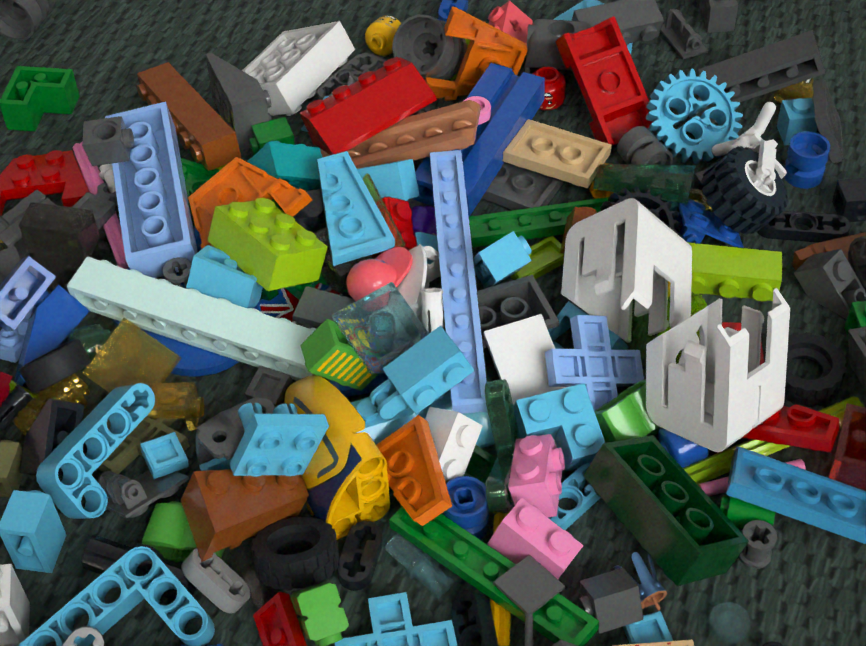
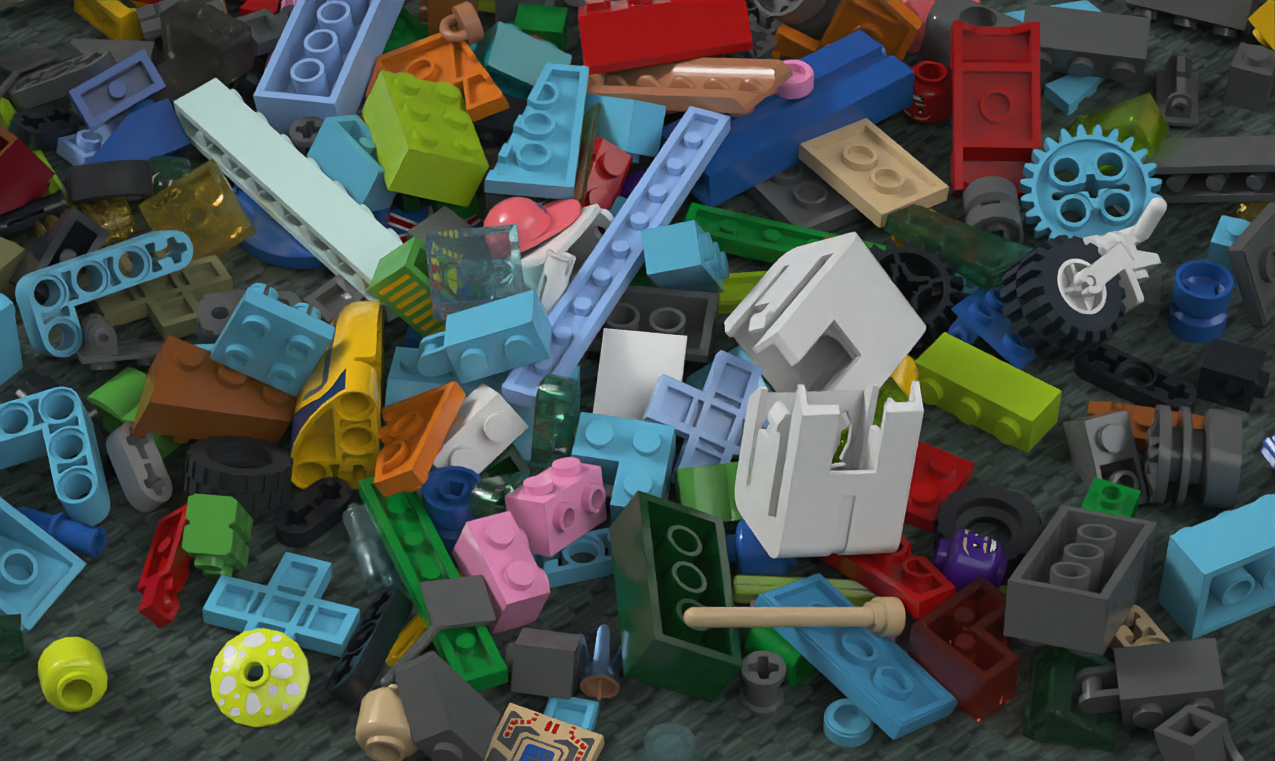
camera: 25 degrees right, 5 degrees down
(164, 455) = (165, 318): medium azure tile -> none
(178, 401) = (217, 271): clear yellow bracket -> none
(244, 149) = (467, 23): none -> nougat tile
(684, 59) = (1133, 118): none -> clear neon green brick
(802, 461) = (881, 617): none -> tan piece
(824, 546) = (847, 724): none -> medium azure tile
(827, 393) = (969, 557): none -> dark purple head

